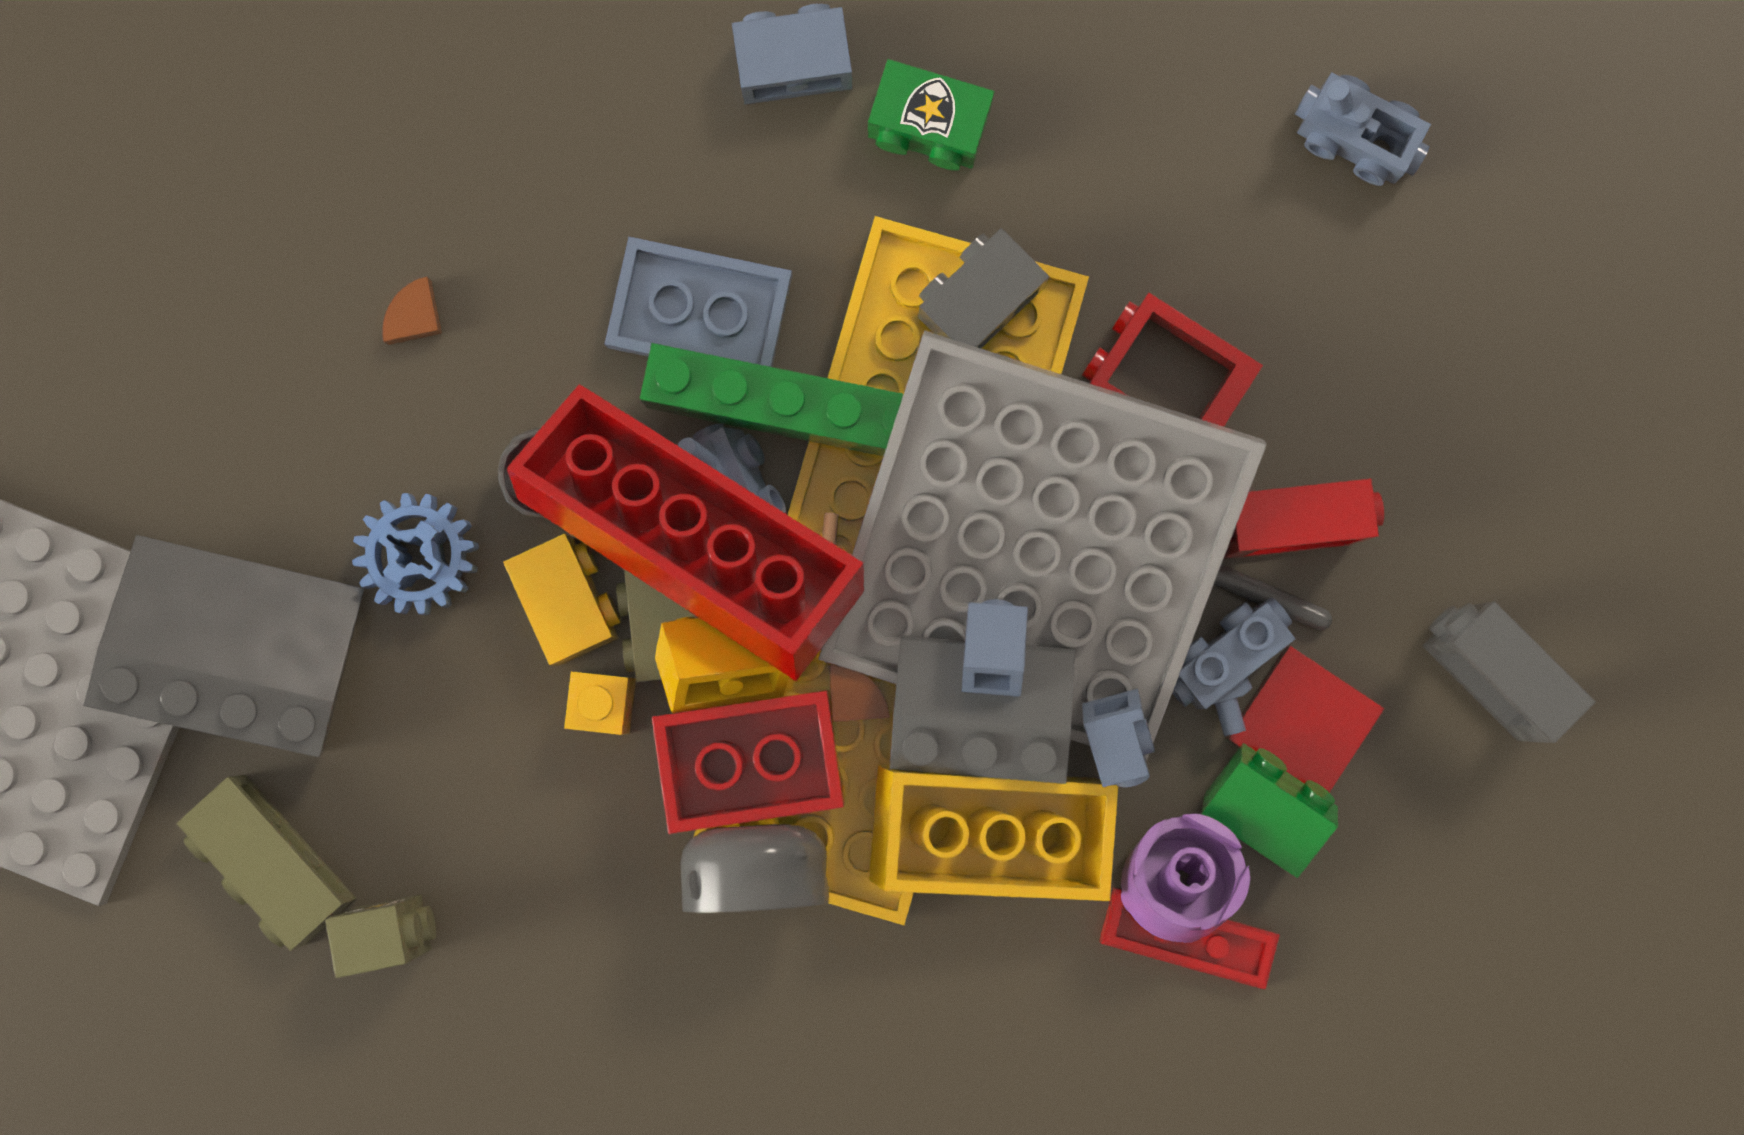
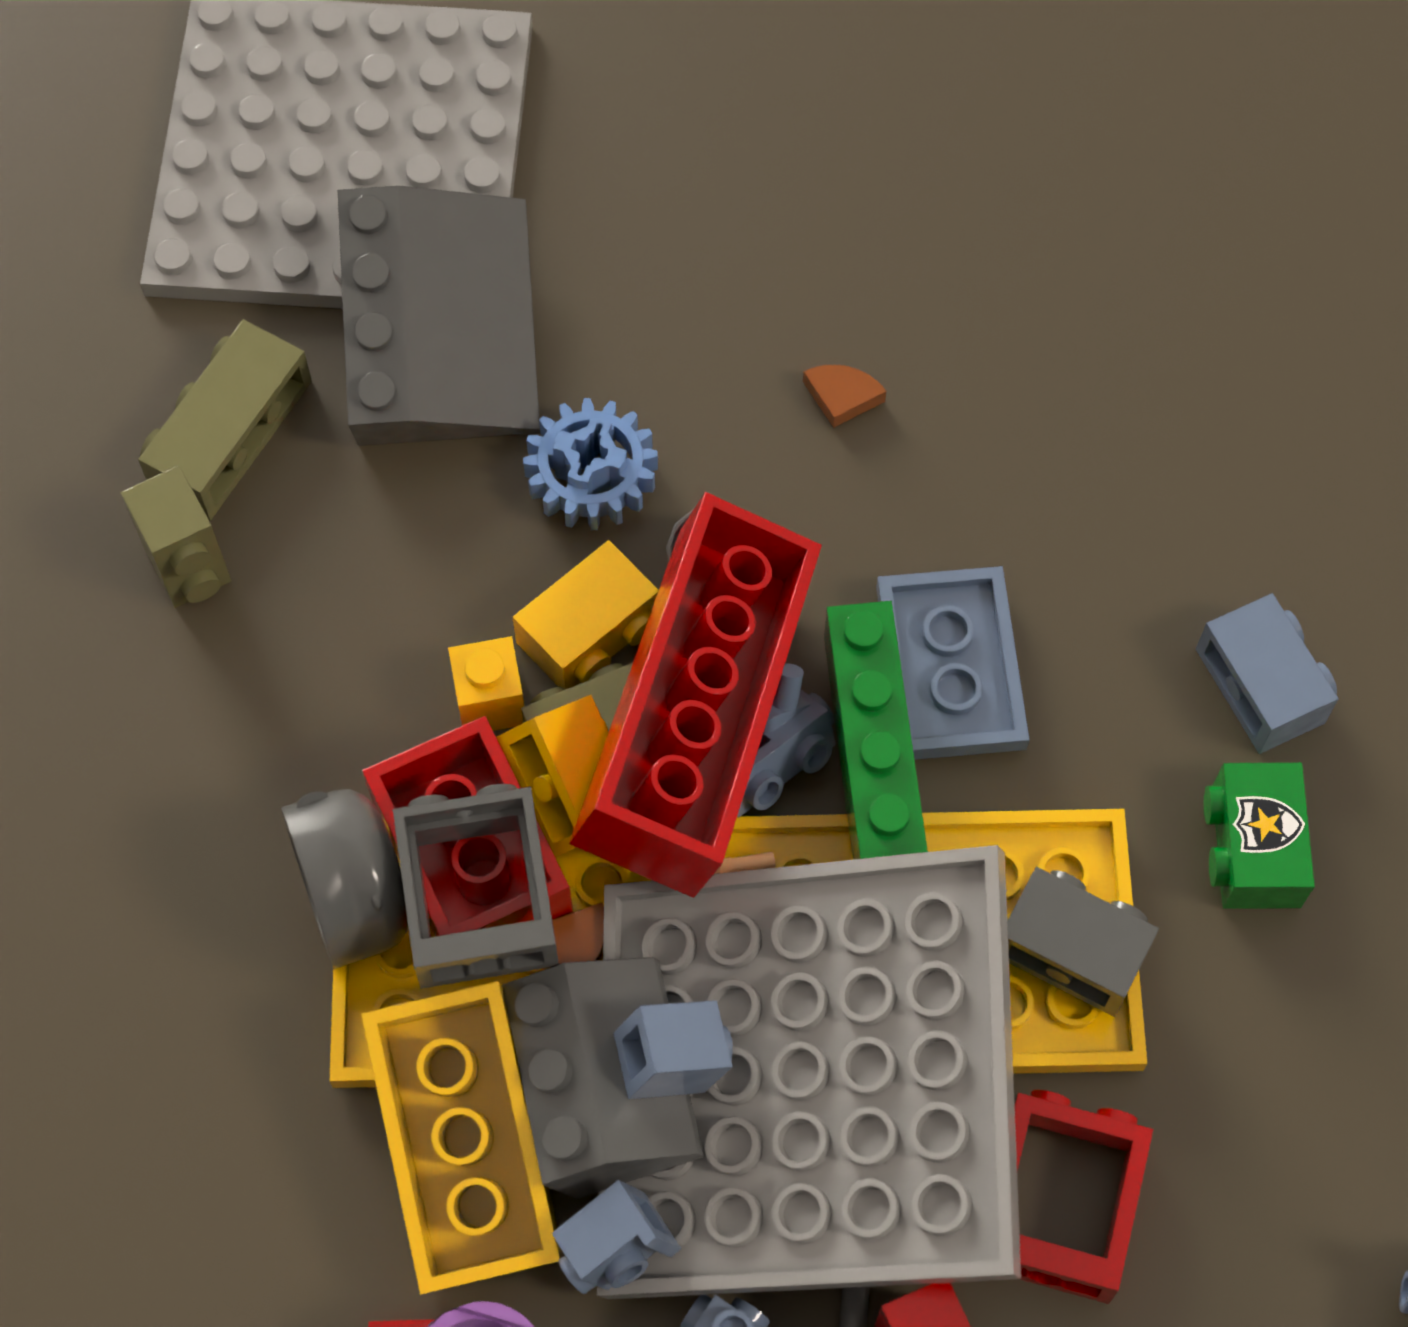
camera: 70 degrees right, 20 degrees down
(741, 783) = (480, 951): none -> dark grey window

